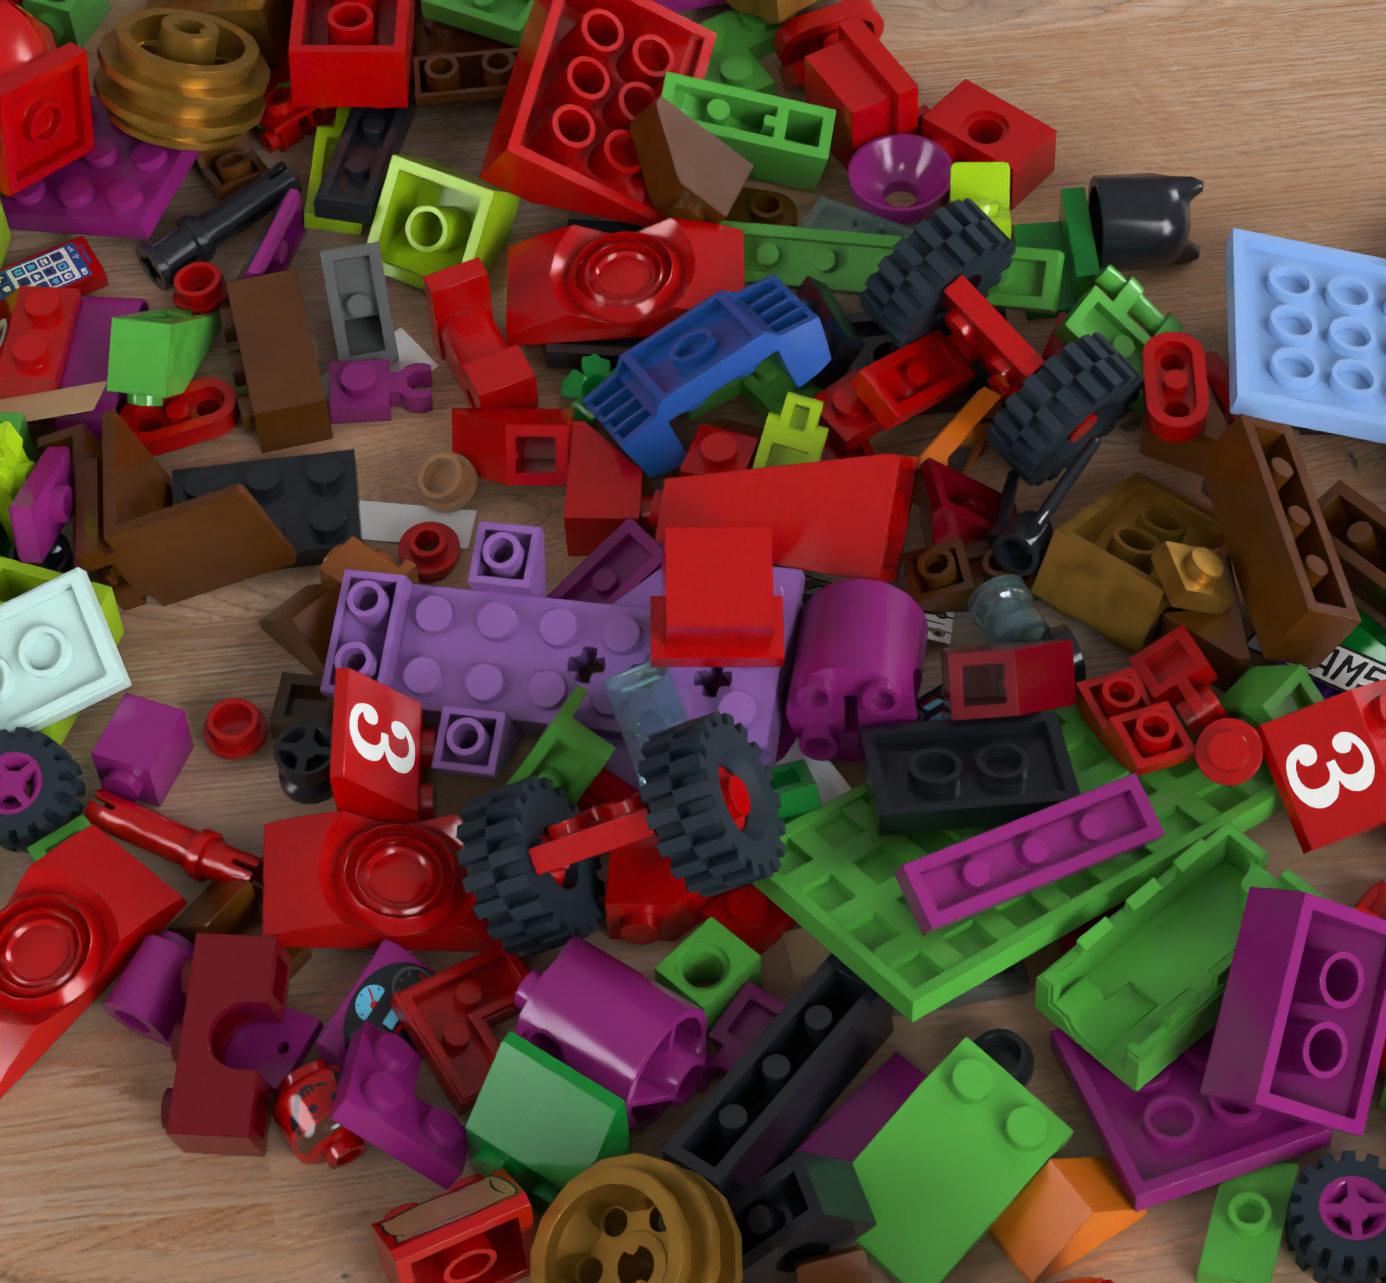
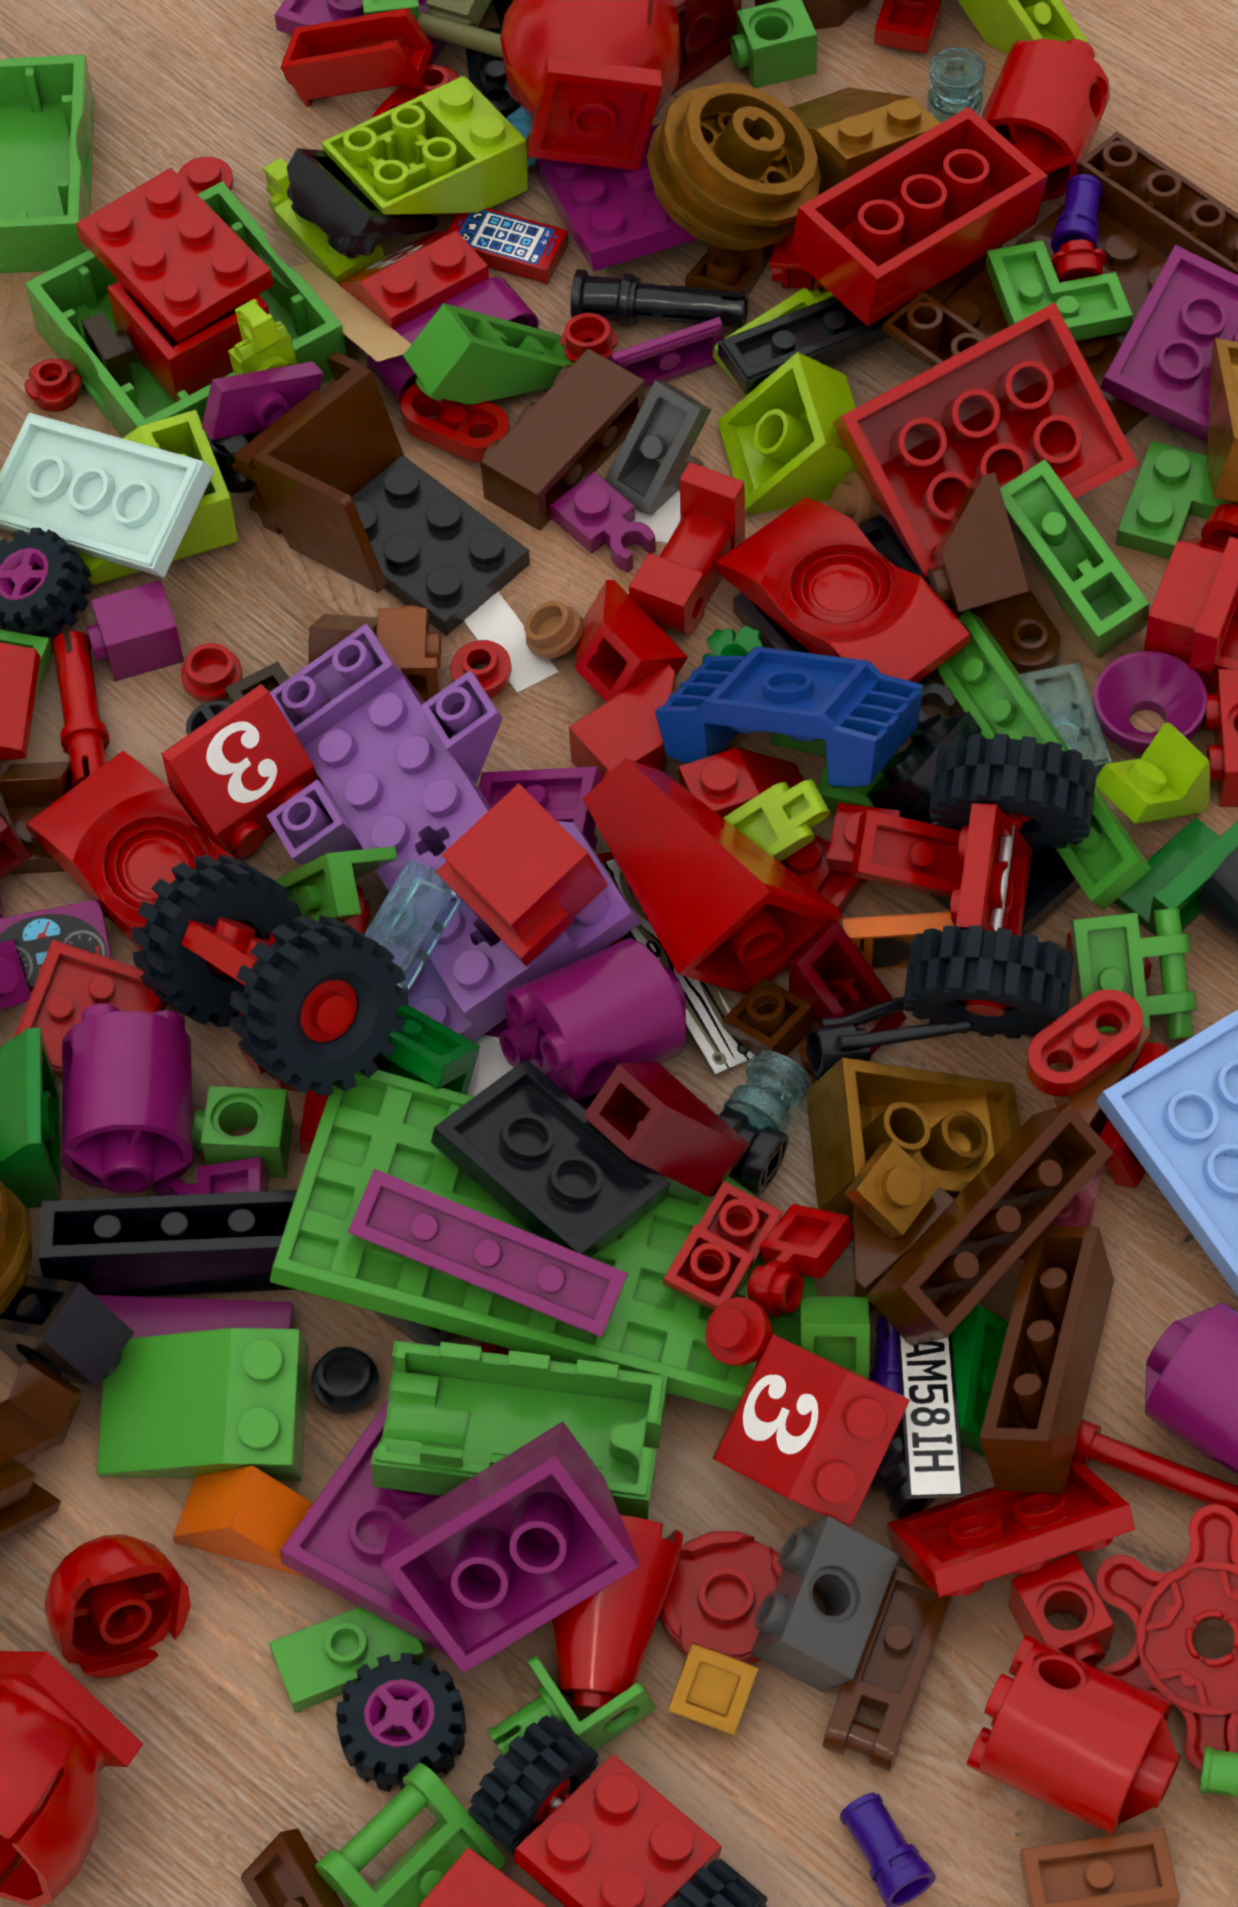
camera: 50 degrees right, 5 degrees up
(532, 220) = (854, 499): none -> medium nougat plate

